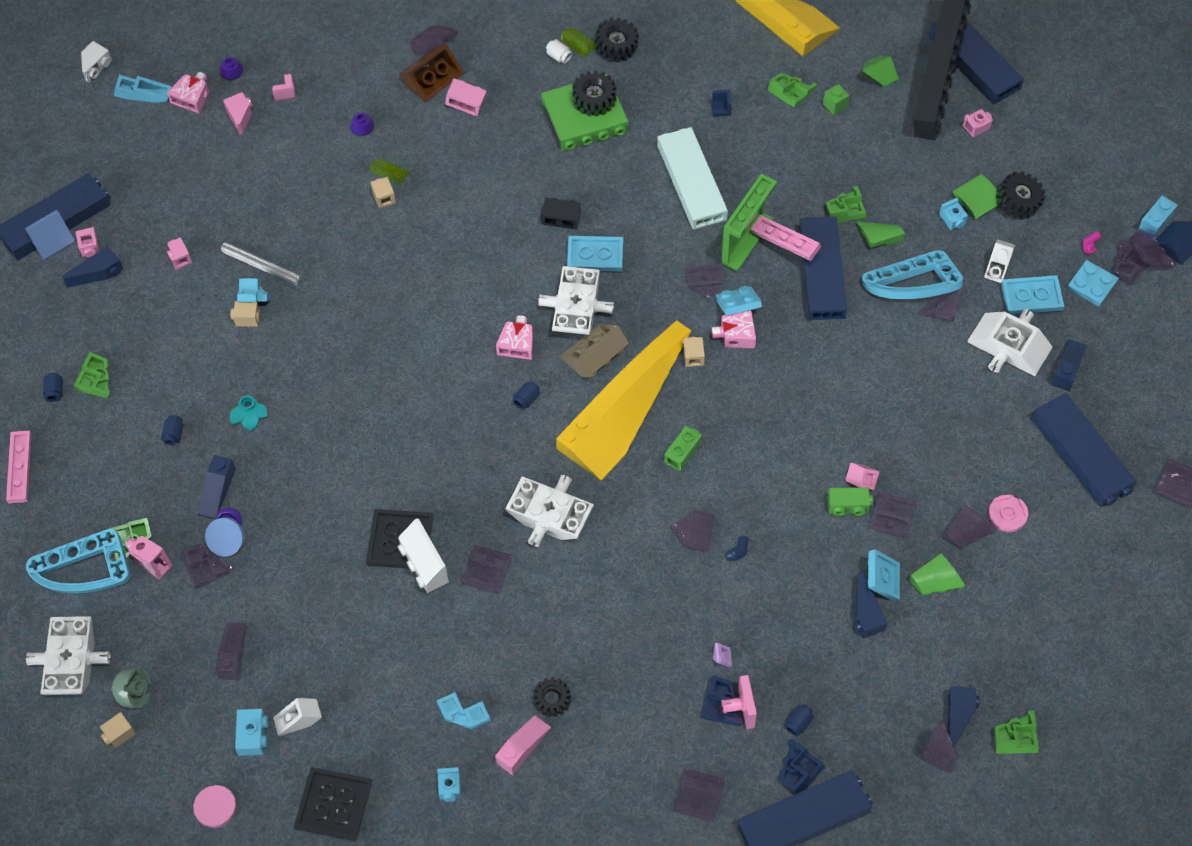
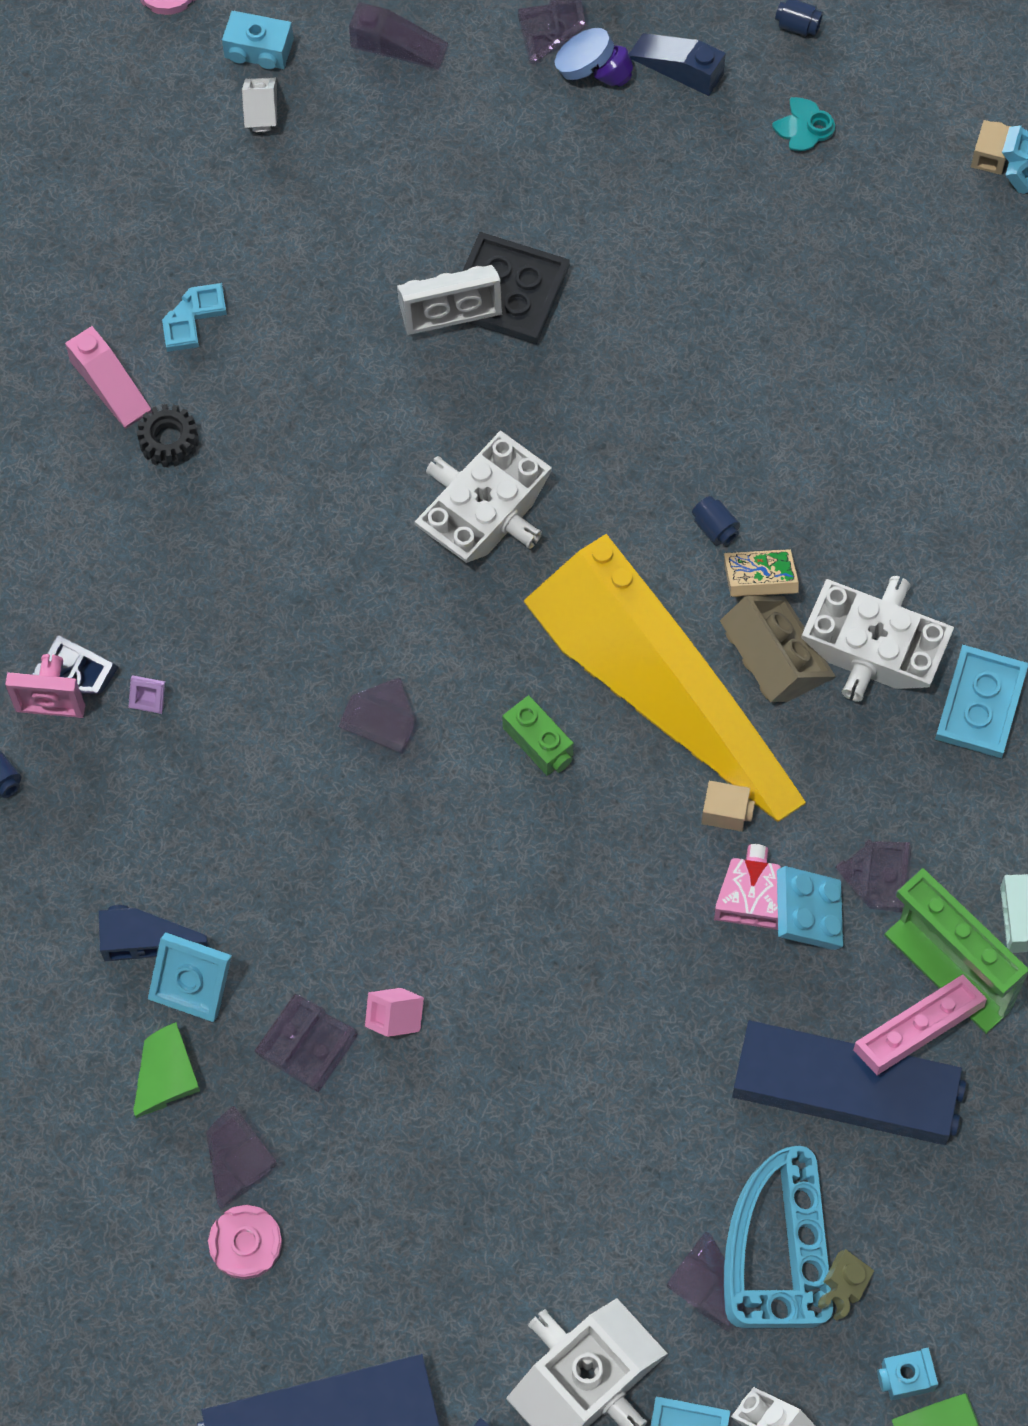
camera: 105 degrees right, 5 degrees up
(333, 804) = (112, 124): black plate -> none
(449, 775) = (83, 270): medium azure brick -> none
(486, 569) = (417, 397): clear purple slope -> none
(516, 339) = (832, 532): bright pink torso -> none
(553, 364) = (761, 573): none -> tan tile
(739, 551) = (321, 775): dark blue arm -> none
(841, 206) = (979, 1163): bright green slope -> none
(849, 501) = (352, 972): bright green brick -> none
(879, 234) = (903, 1219): bright green slope -> none
(920, 247) = (848, 1281): none -> olive plate

